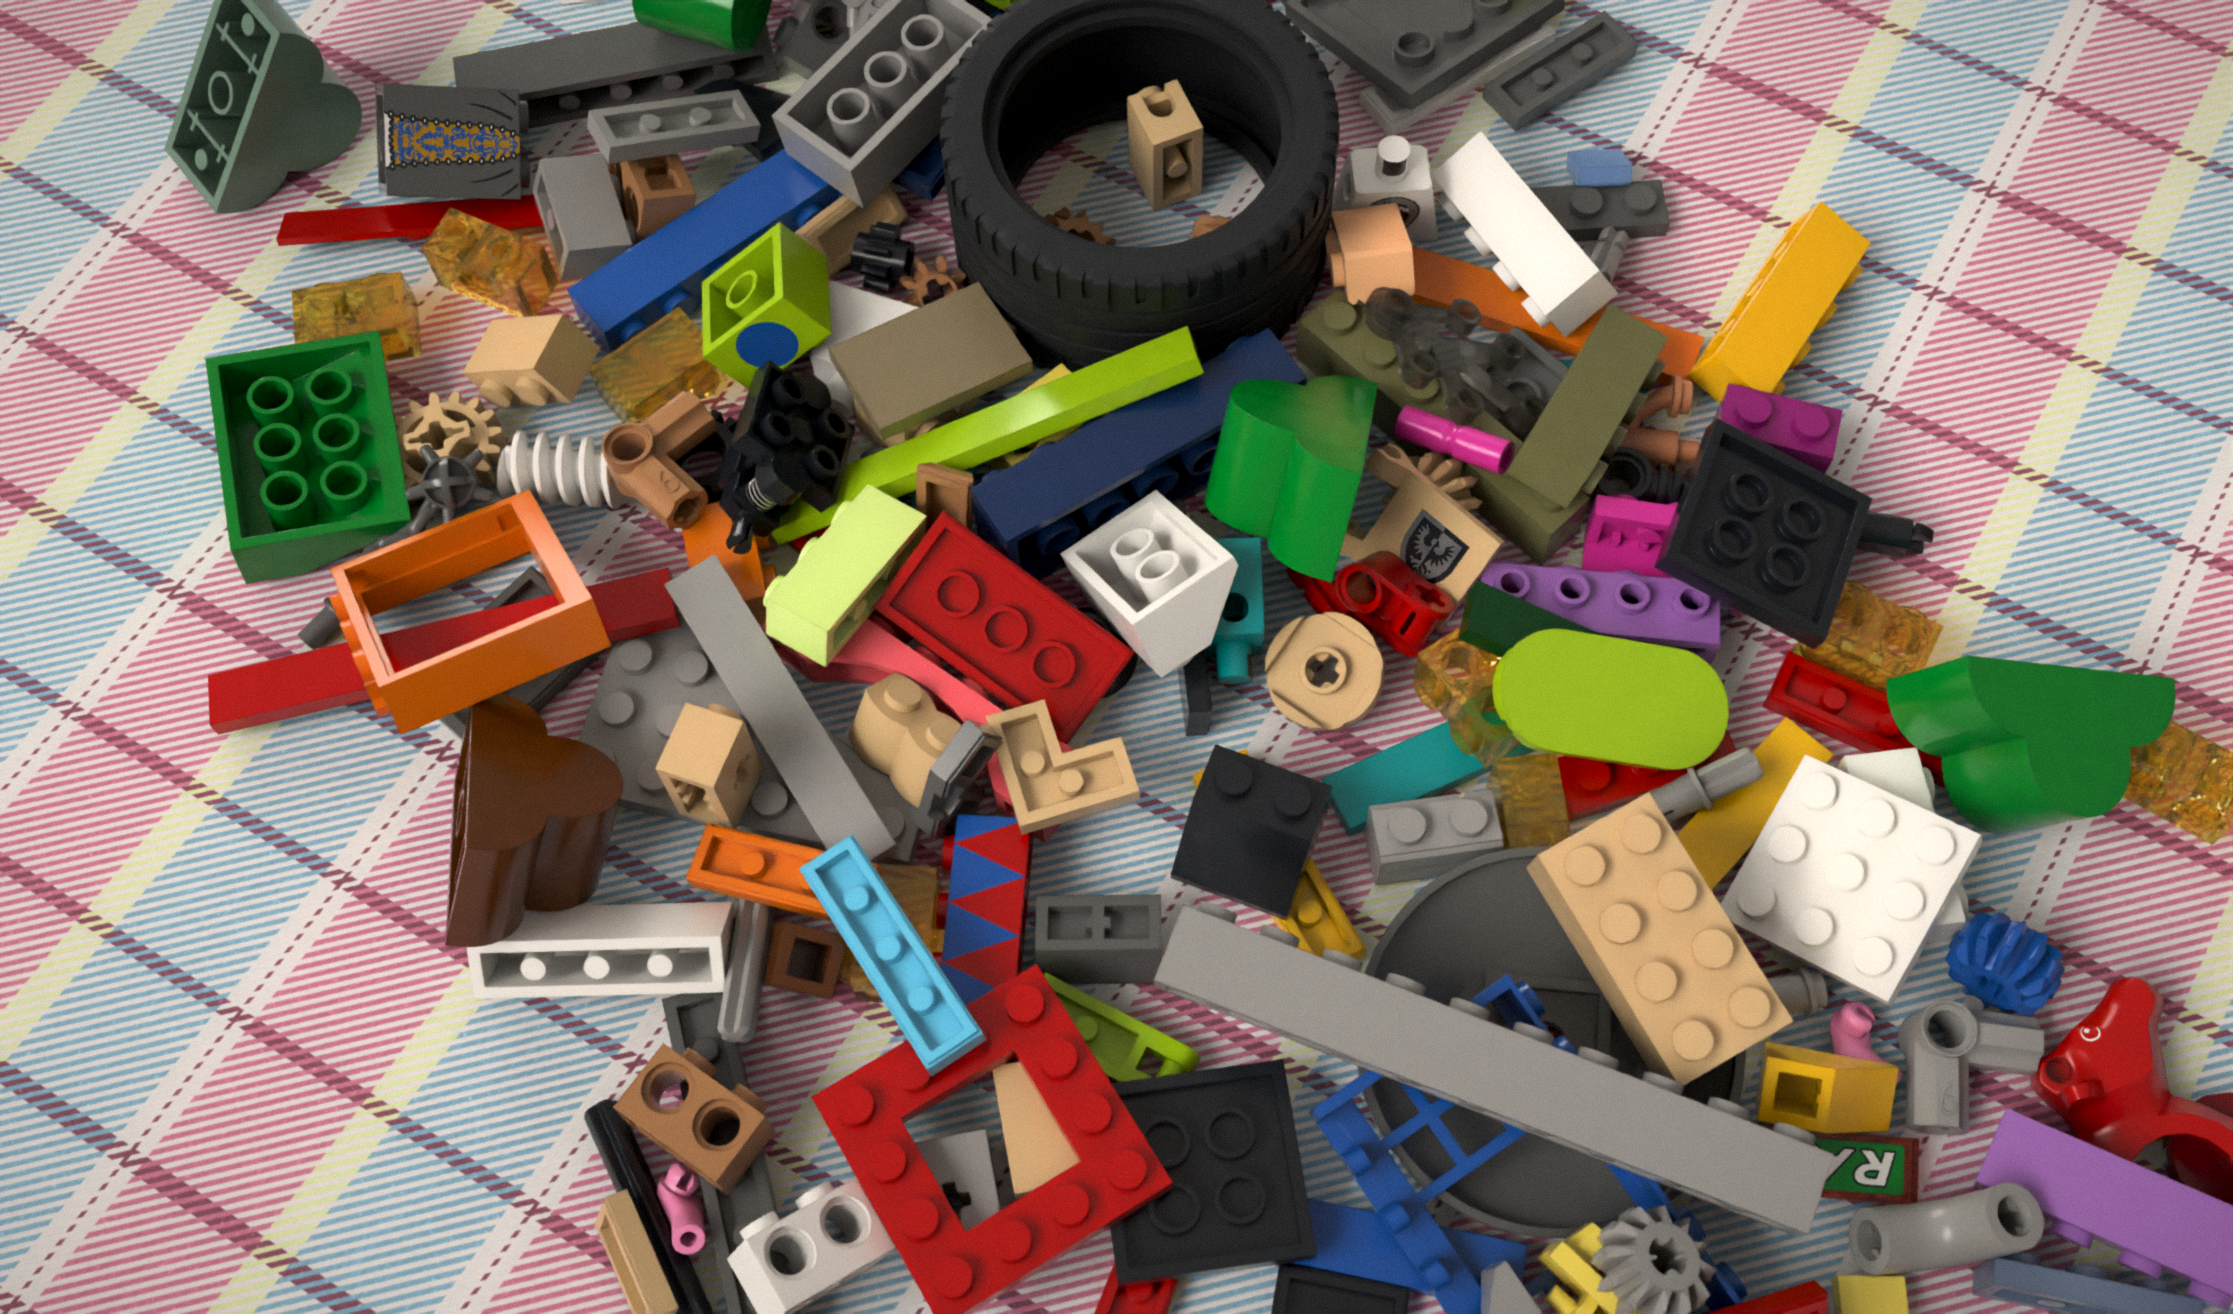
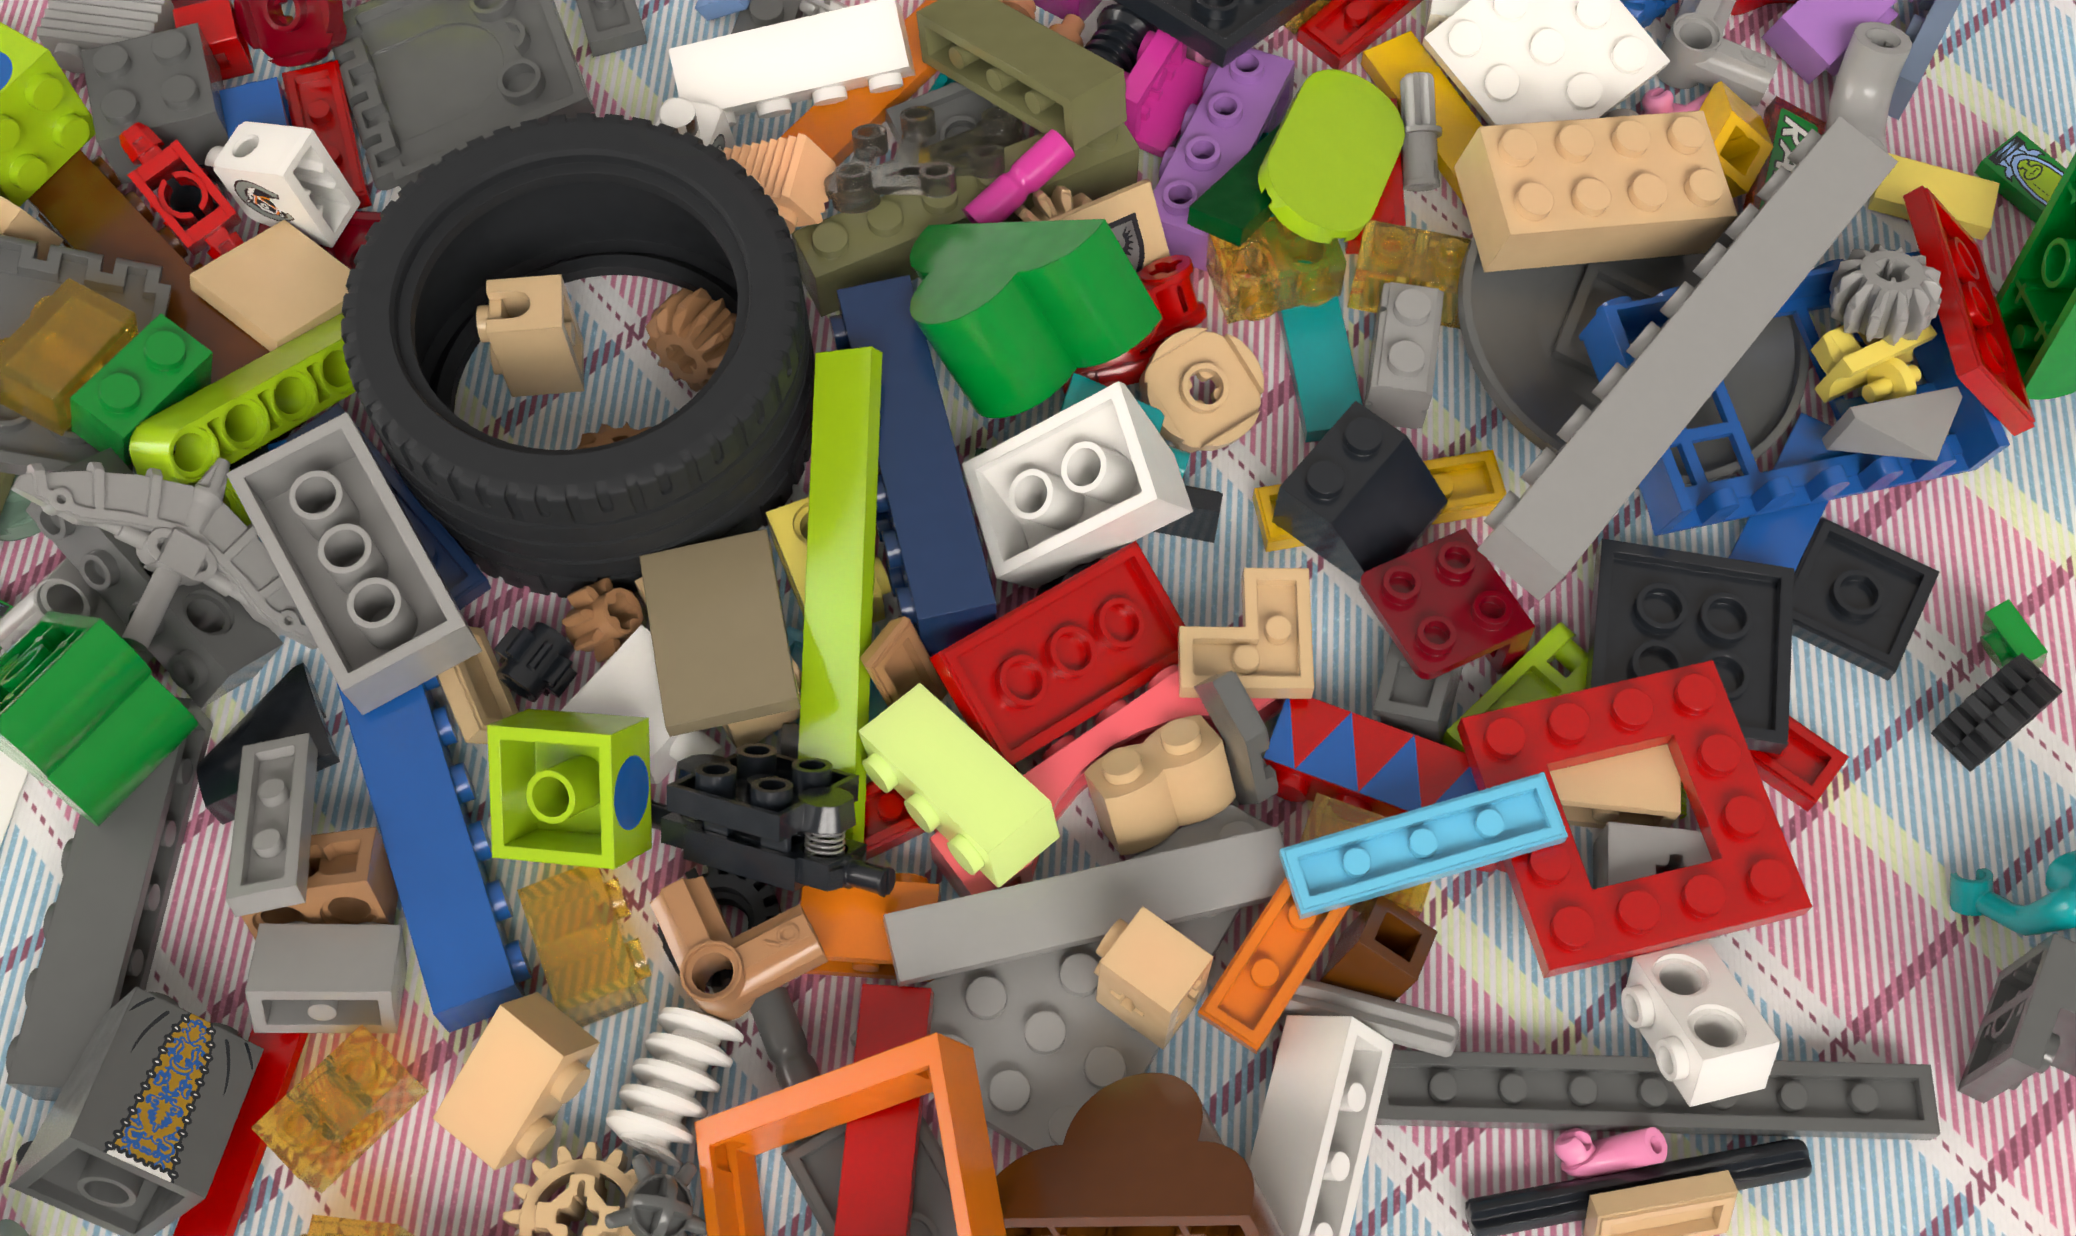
camera: 75 degrees left, 0 degrees up
(616, 544) = (783, 1038): none -> dark grey piece
(688, 1127) = (1543, 1109): medium nougat brick -> none
(1132, 923) = (1447, 607): none -> dark red bracket

